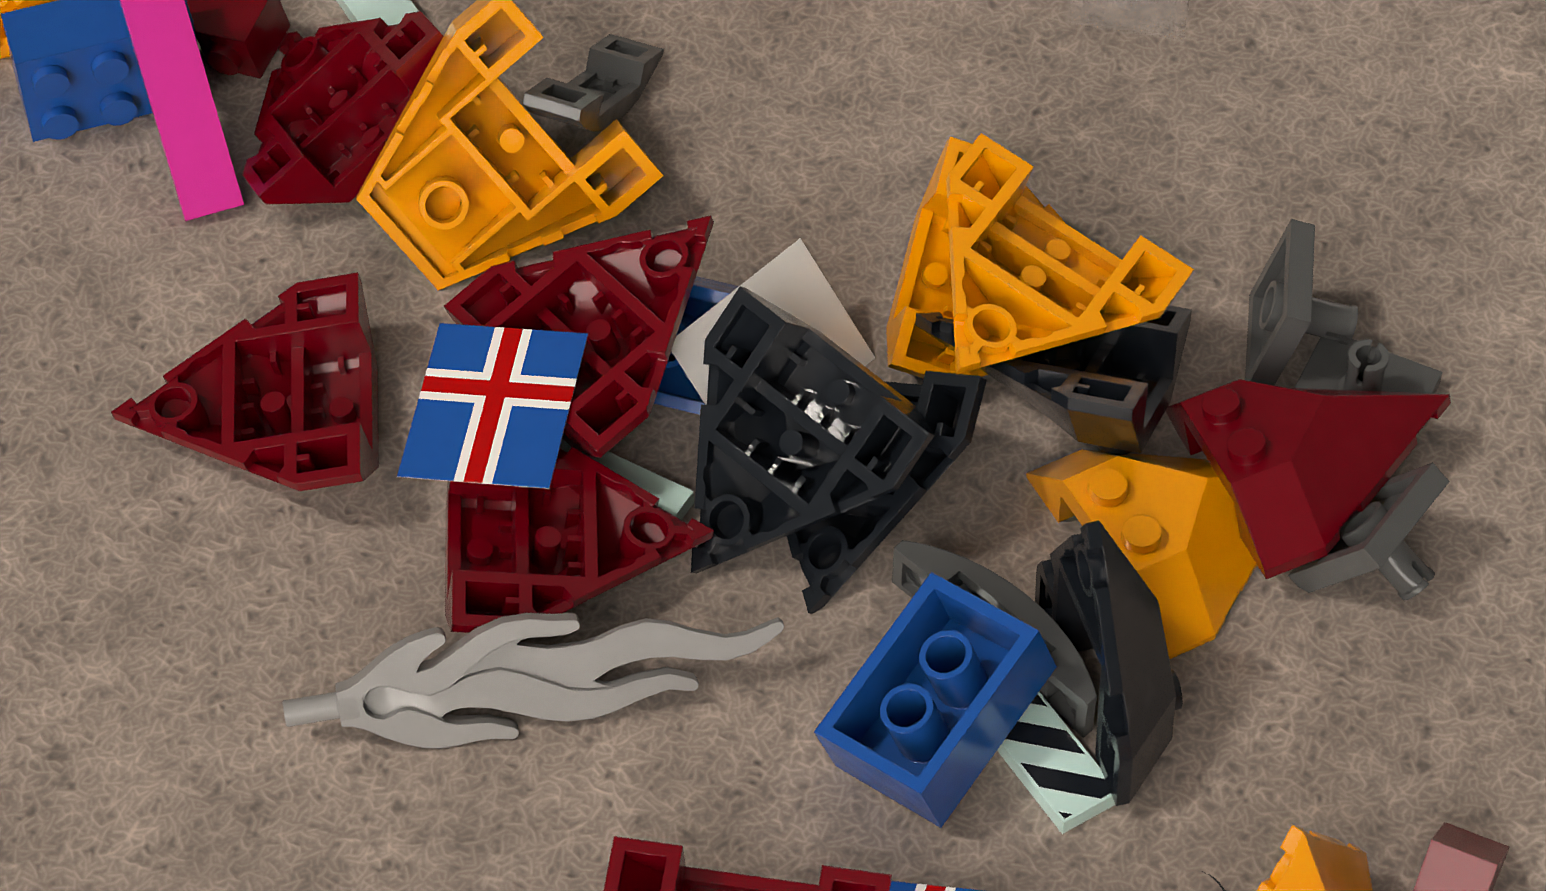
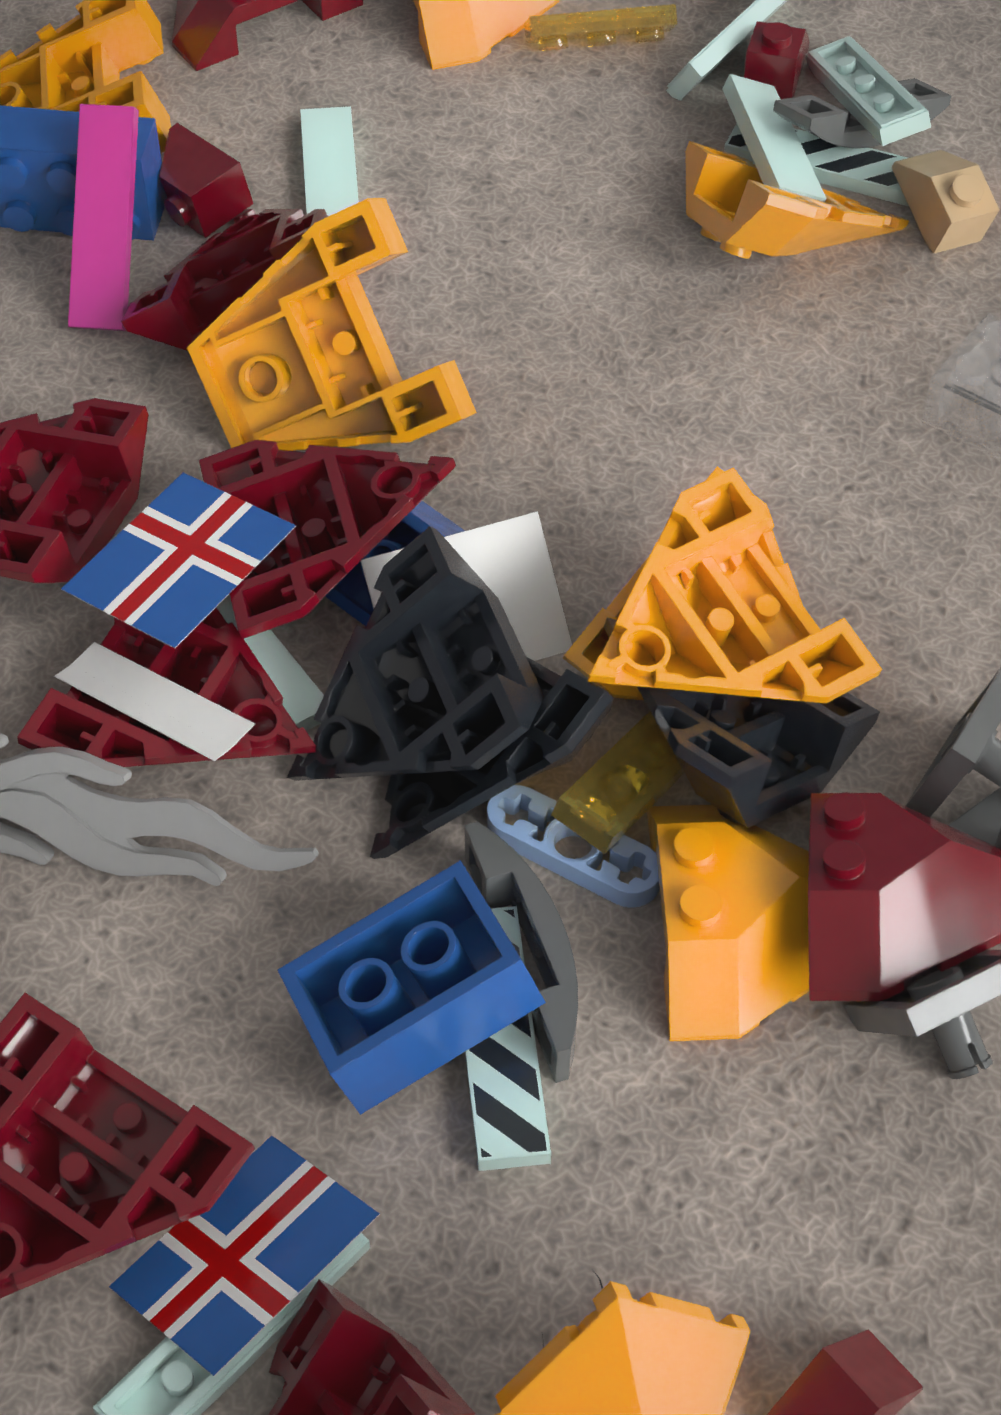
camera: 25 degrees right, 0 degrees up
(544, 546) = (156, 701): none -> white sticker
(604, 91) = (489, 333): dark grey slope -> none
(999, 514) = (582, 871): none -> light blue beam
(1005, 456) = (620, 786): none -> clear yellow plate
(1111, 609) = (601, 1029): black wedge -> none

